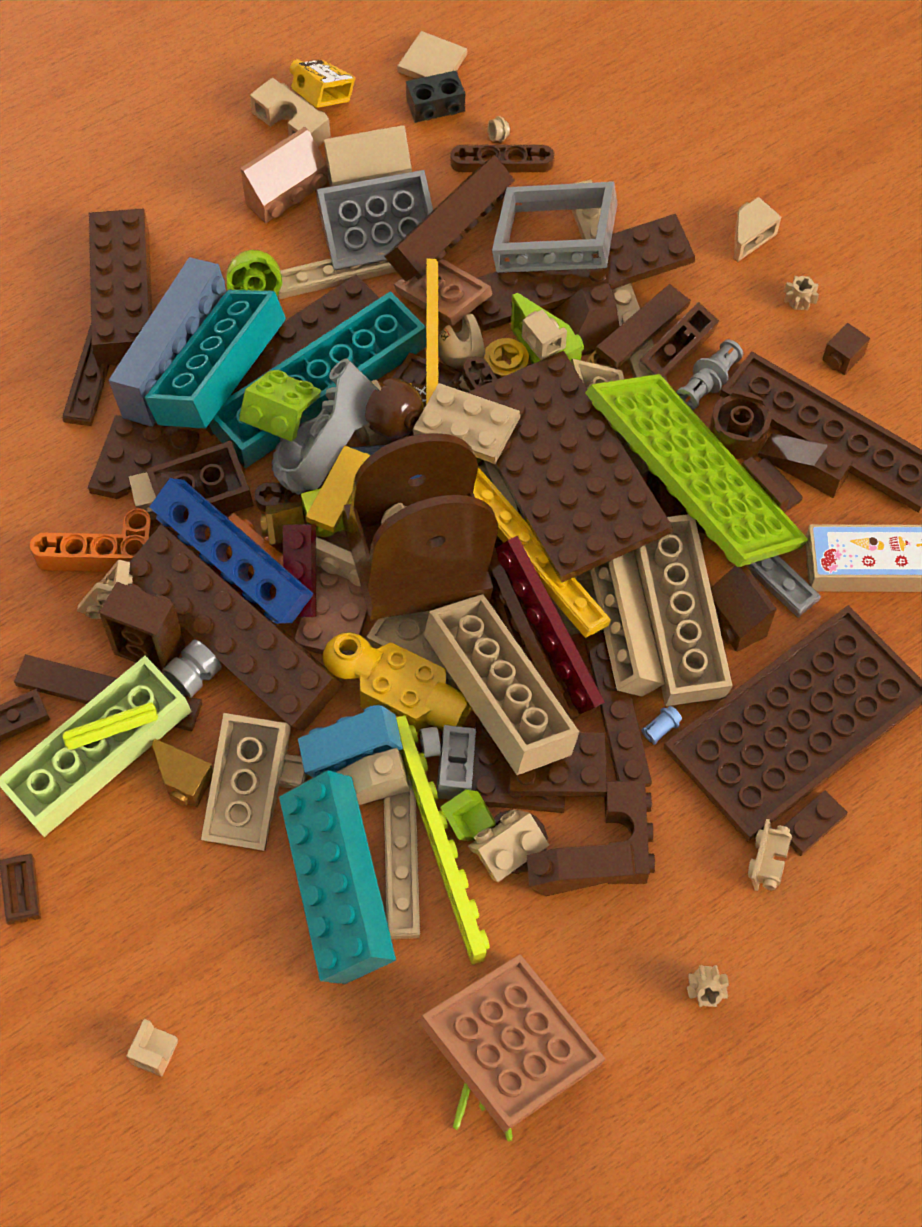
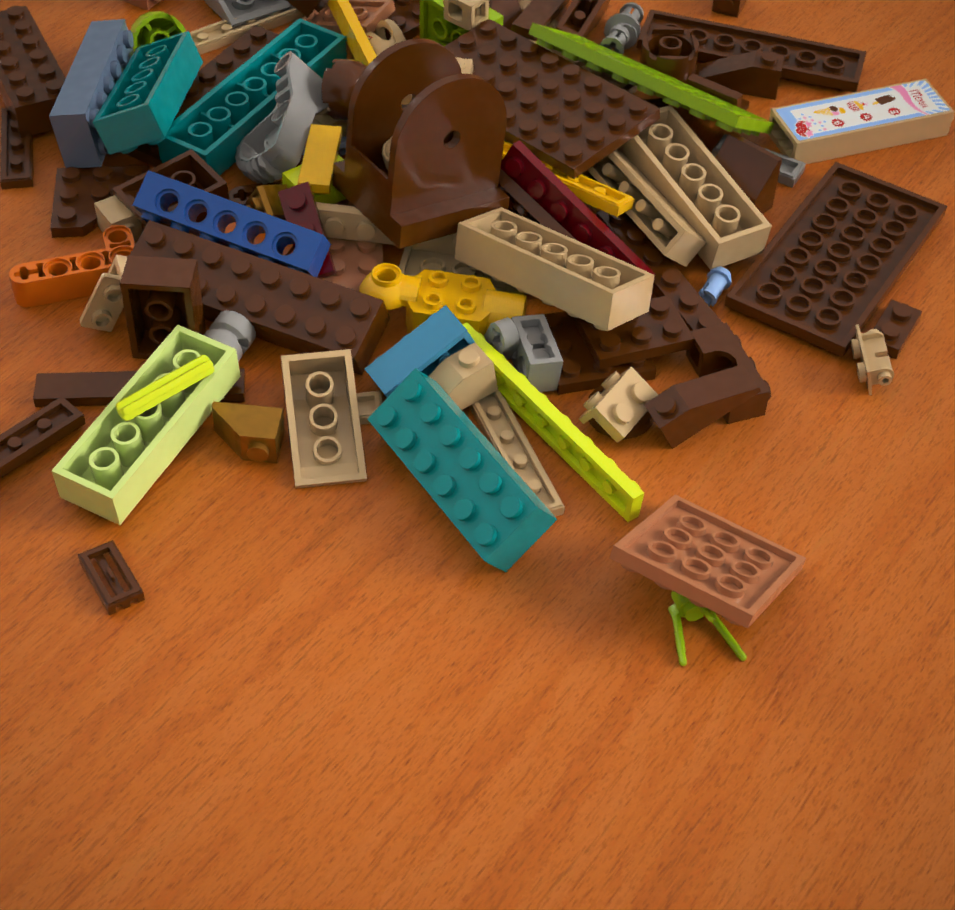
camera: 20 degrees left, 15 degrees down
(152, 1049) = (323, 681): tan panel -> none
(277, 403) = (227, 112): lime bracket -> none
(468, 814) = (566, 391): lime panel -> none
(708, 986) = (872, 471): tan gear -> none

